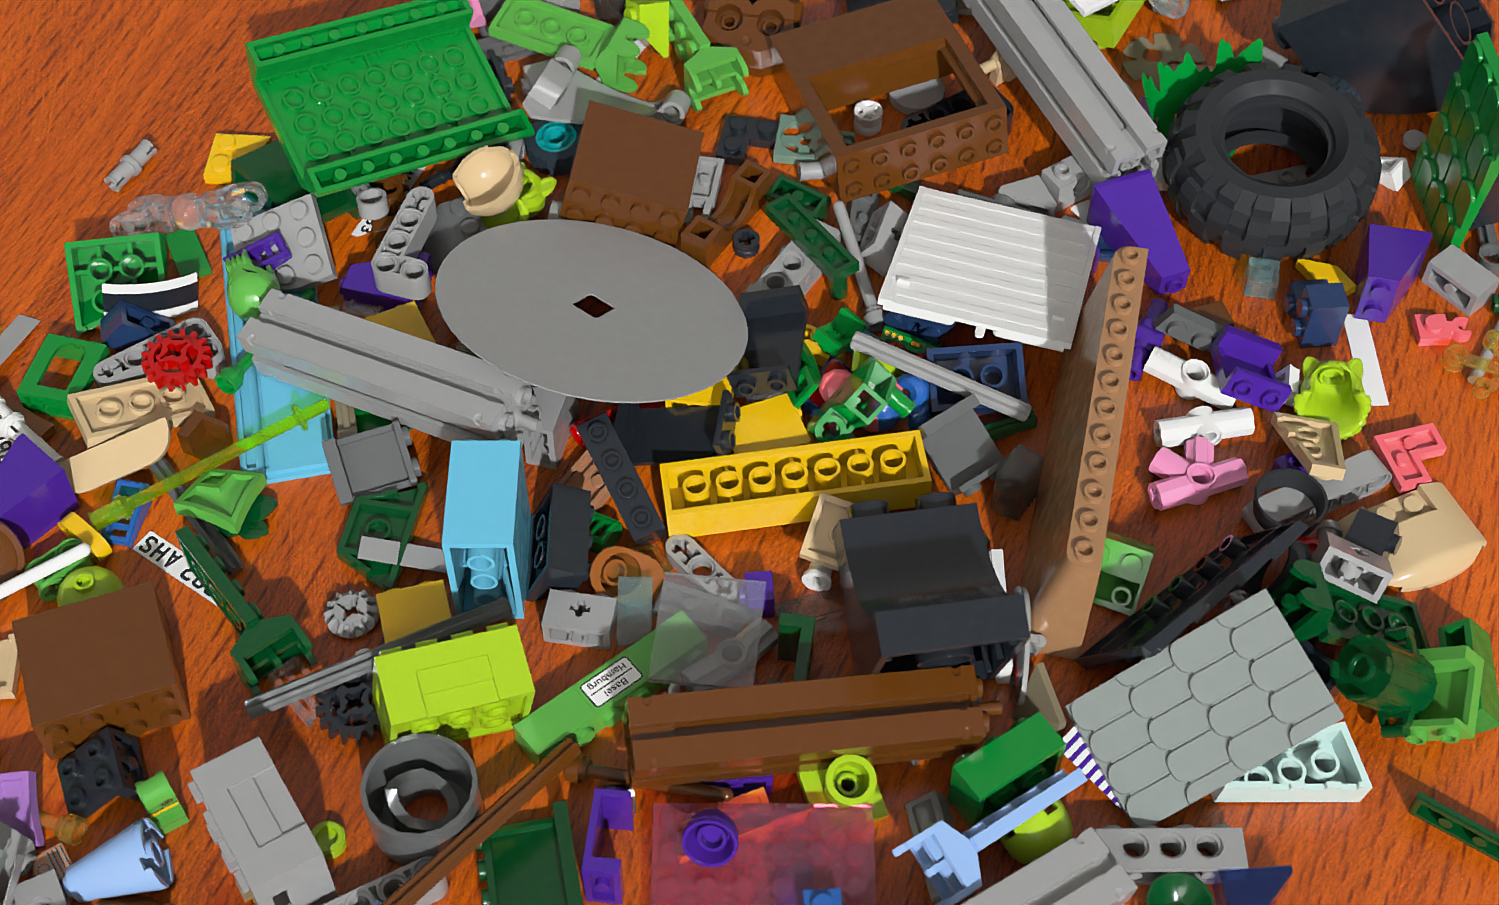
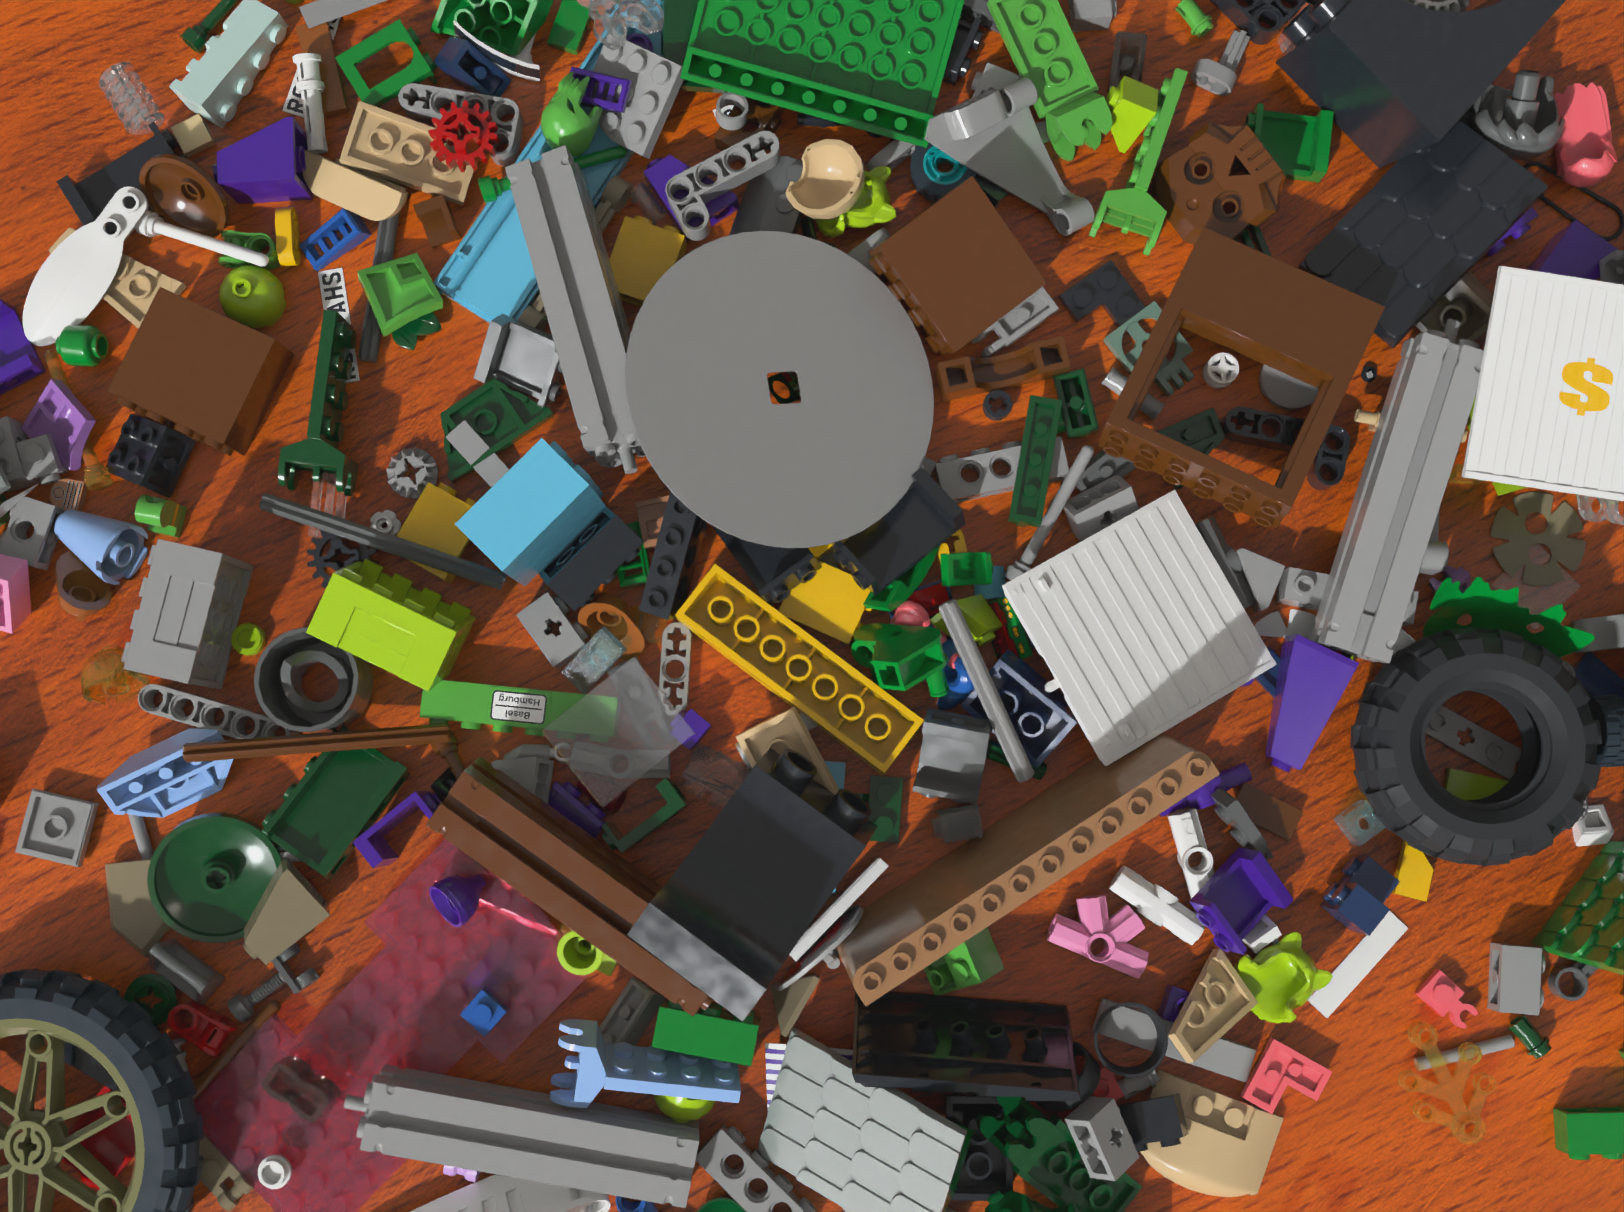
camera: 50 degrees right, 30 degrees up
(124, 506) = (325, 240): clear neon green bar -> none
(1387, 269) = (1455, 919): dark purple slope -> none

